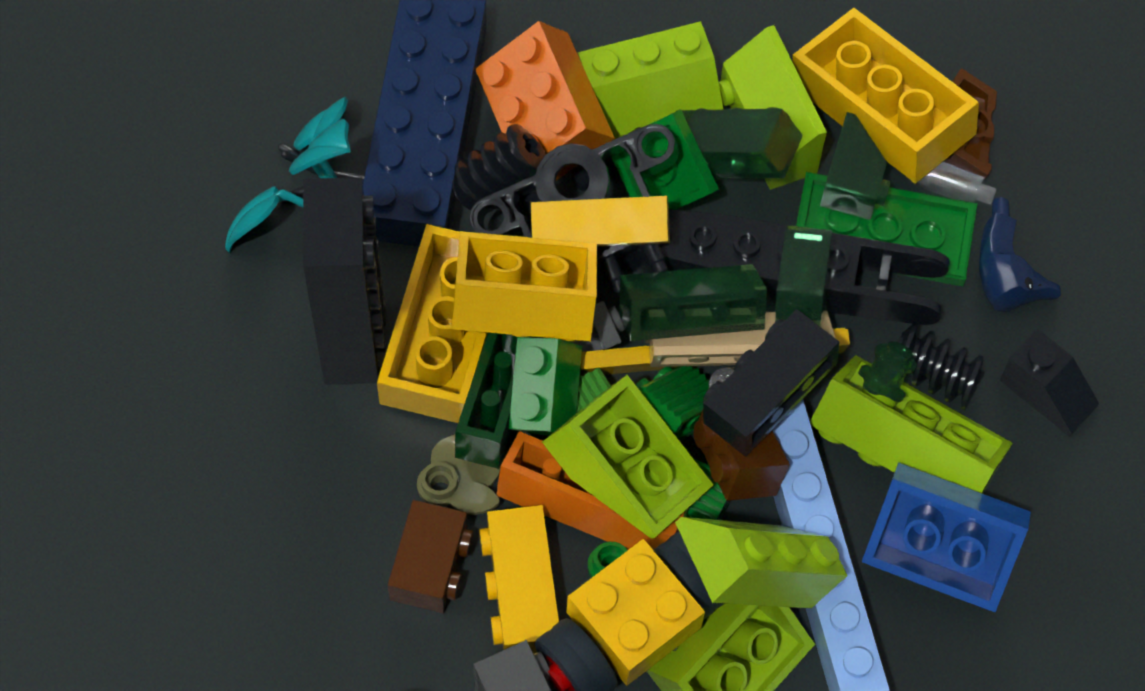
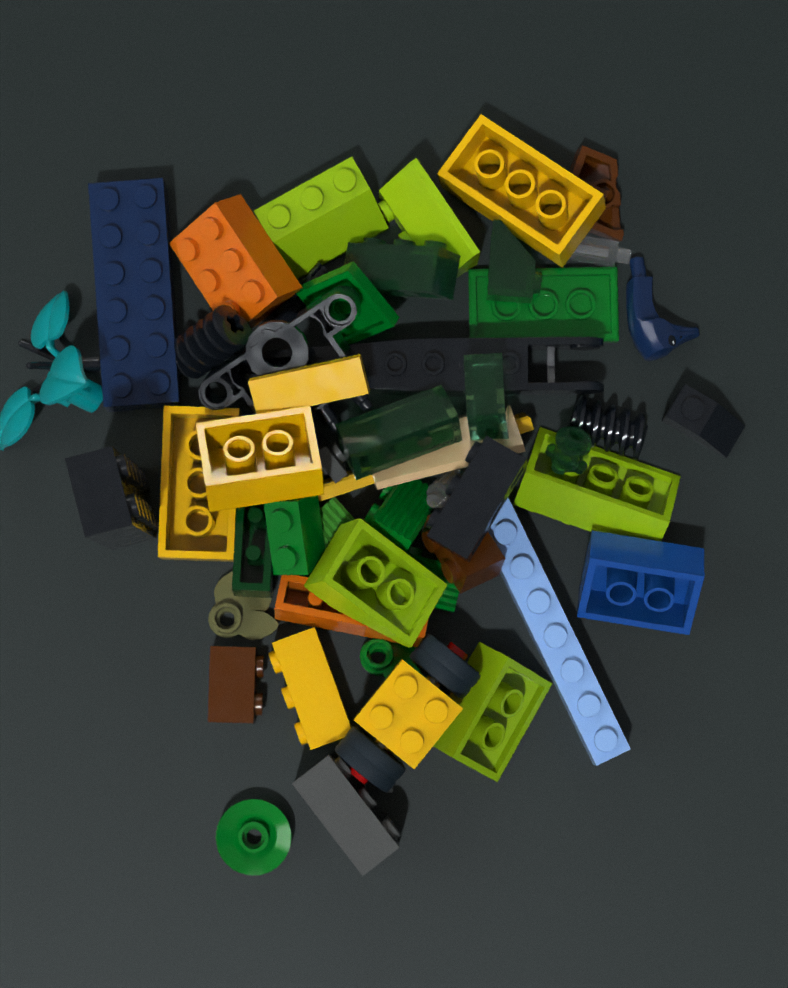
camera: 10 degrees left, 20 degrees up
(761, 562) = (496, 649): lime slope -> none

